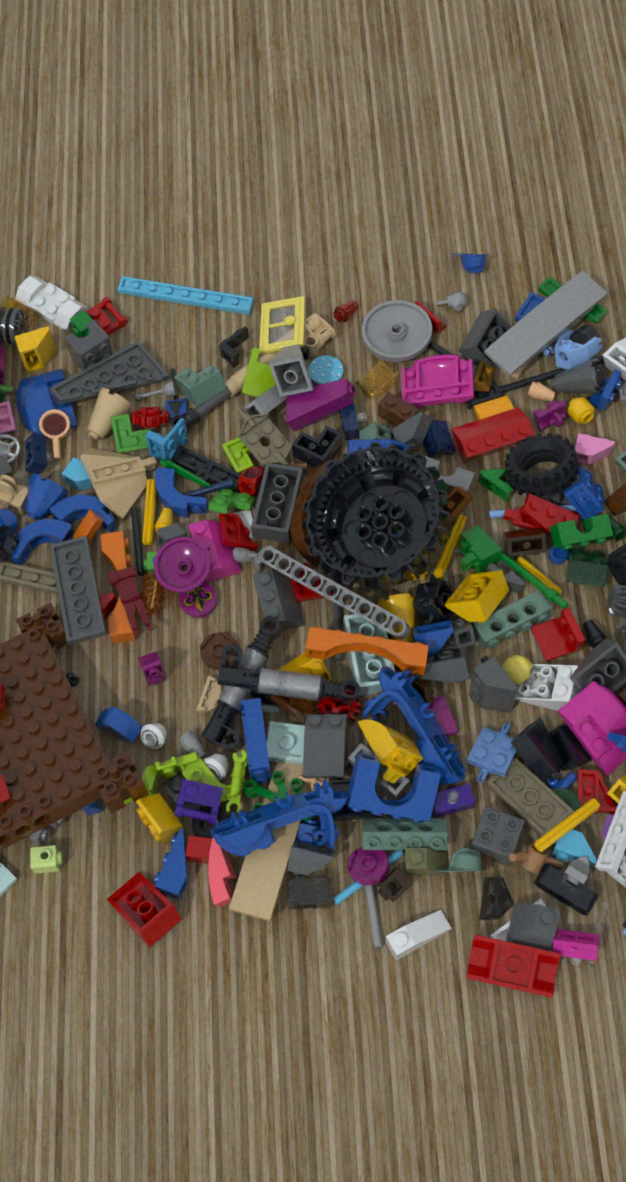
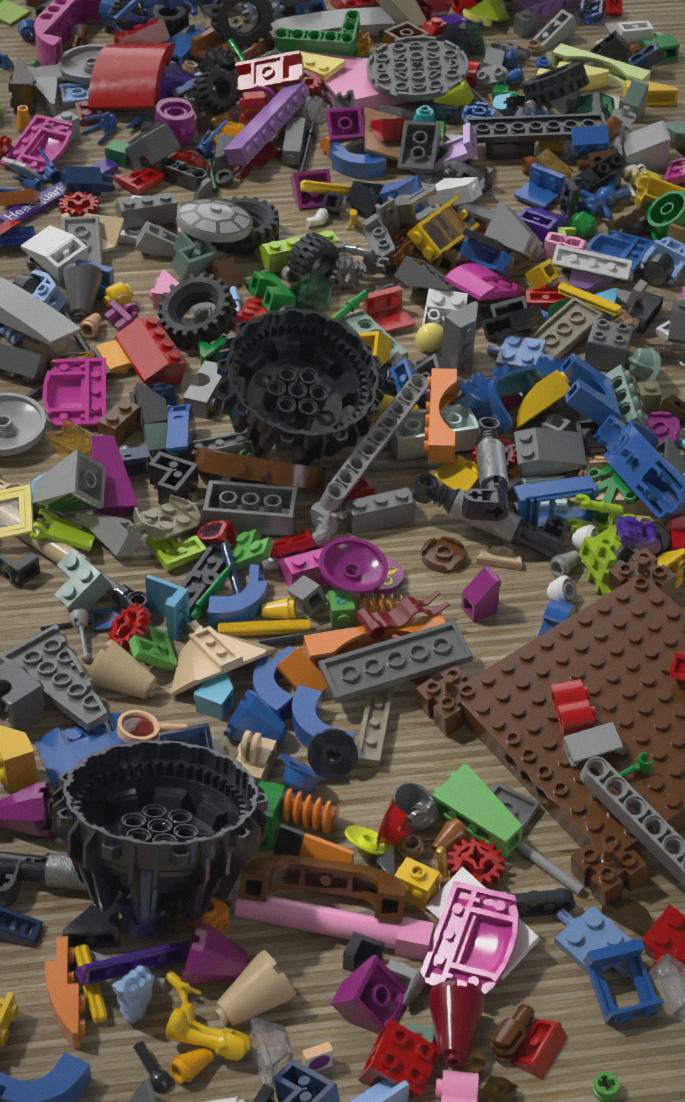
camera: 100 degrees left, 20 degrees down
(586, 495) = (237, 284): blue bracket -> none

